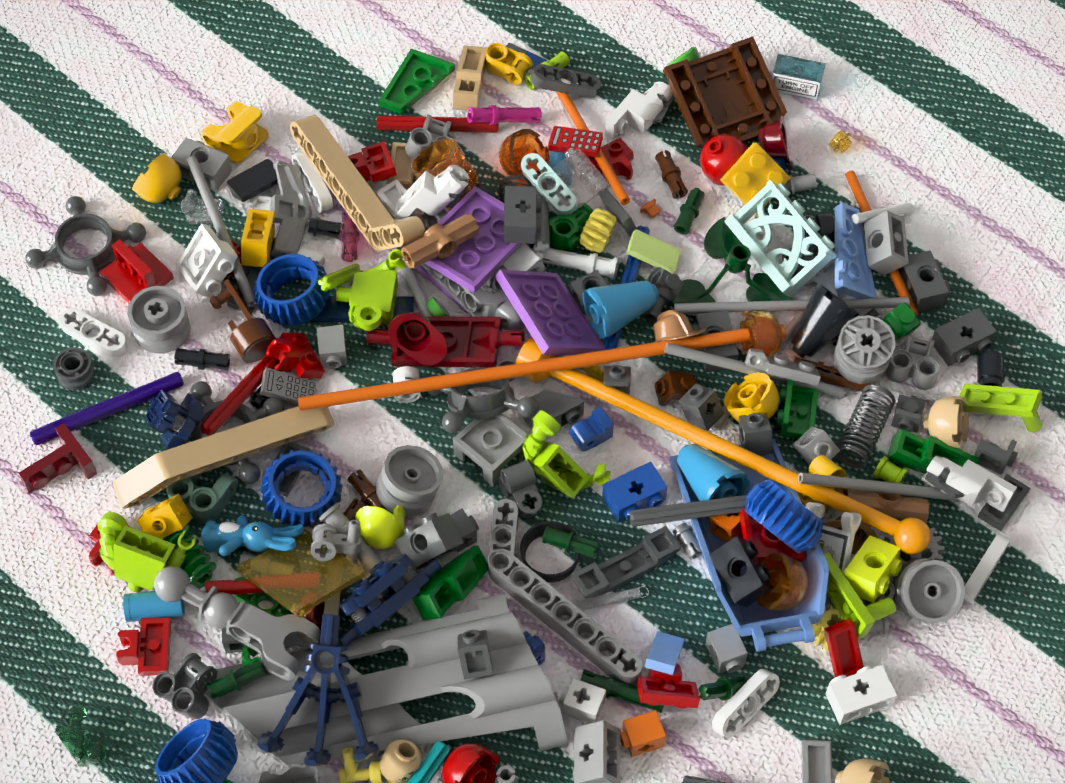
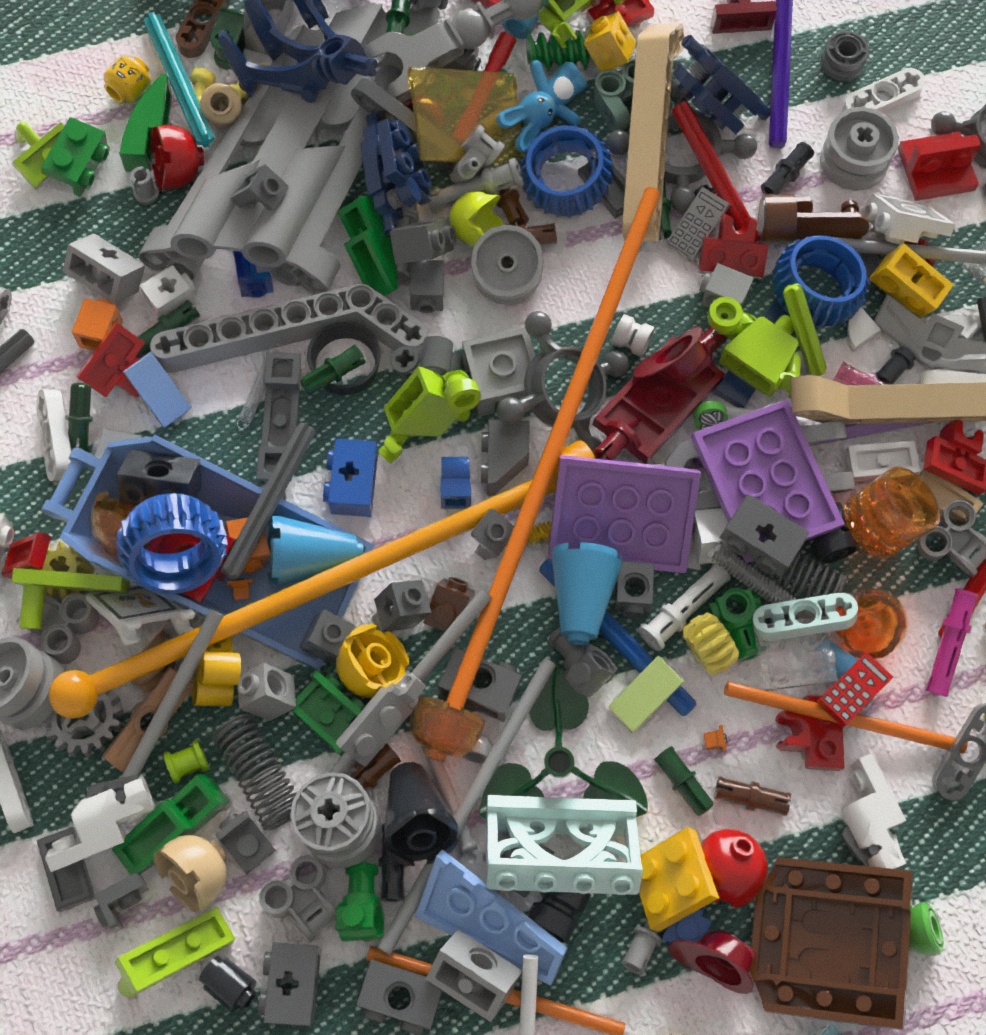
camera: 120 degrees right, 10 degrees up
(433, 193) = (859, 470): white plate -> none
(440, 241) = (774, 424): medium nougat piece -> none
(617, 210) = (711, 682): dark grey tile -> none
(672, 326) = (509, 635): medium nougat piece -> none
(873, 568) = (80, 612): neon yellow brick -> none
(908, 391) = (285, 860): white piece -> none

